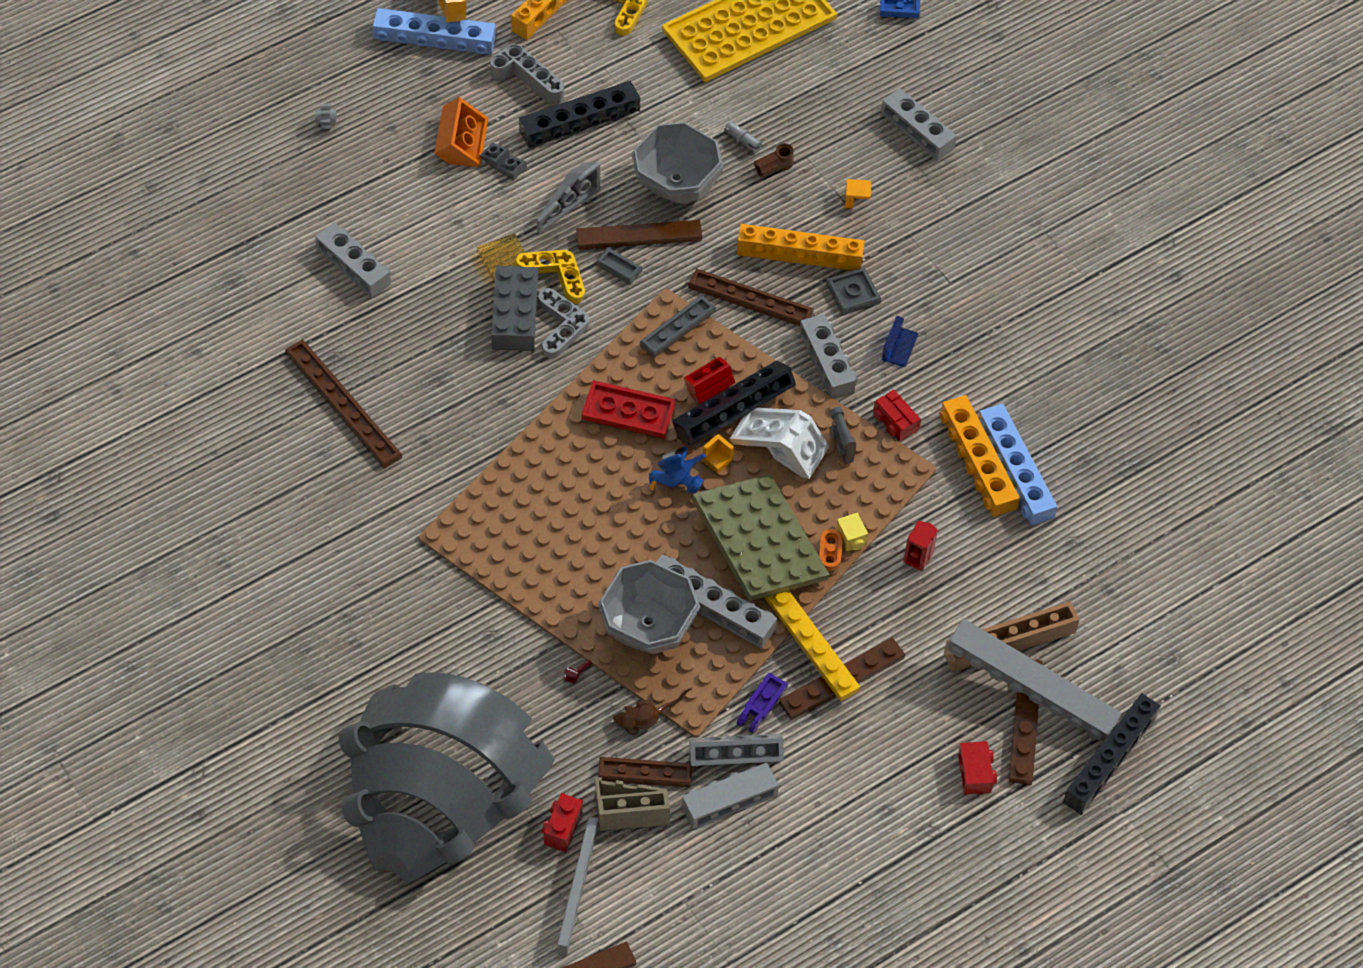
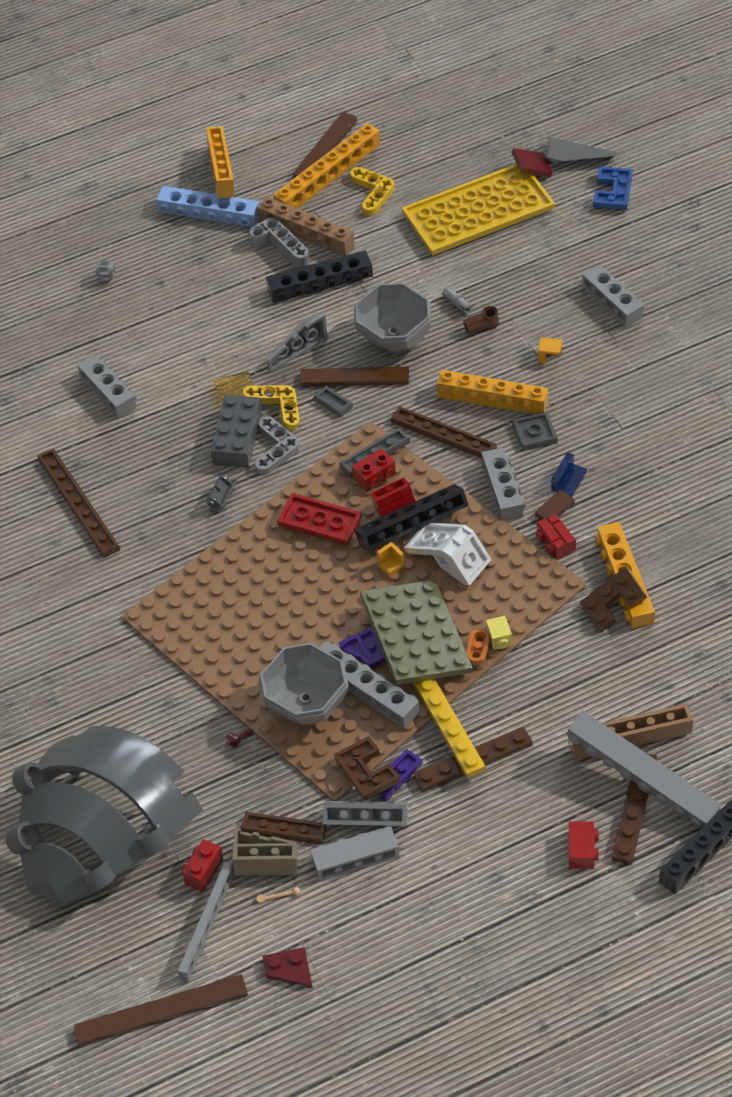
camera: 15 degrees right, 5 degrees down
(461, 134) = (216, 289): orange slope -> none
(502, 161) = (248, 312): dark grey slope -> none
(508, 391) = (218, 498): none -> dark grey hinge
(556, 52) = (308, 226): none -> medium nougat brick
(632, 854) = (261, 898): none -> light nougat hinge
(643, 715) = (289, 778): reddish brown animal -> none
(676, 929) = (288, 966): none -> dark red wing
(677, 471) = (351, 571): blue animal -> none
(681, 347) = (373, 469): none -> red brick
(704, 558) = (364, 647): none -> dark purple wing
(712, 693) = (366, 782): none -> reddish brown plate
(845, 443) = (500, 547): dark grey plate -> none
(889, 379) = (555, 505): none -> reddish brown tile
(920, 545) = (558, 647): red brick -> none
(978, 468) = (619, 585): none -> reddish brown plate
(1043, 506) = (659, 585): light blue brick -> none

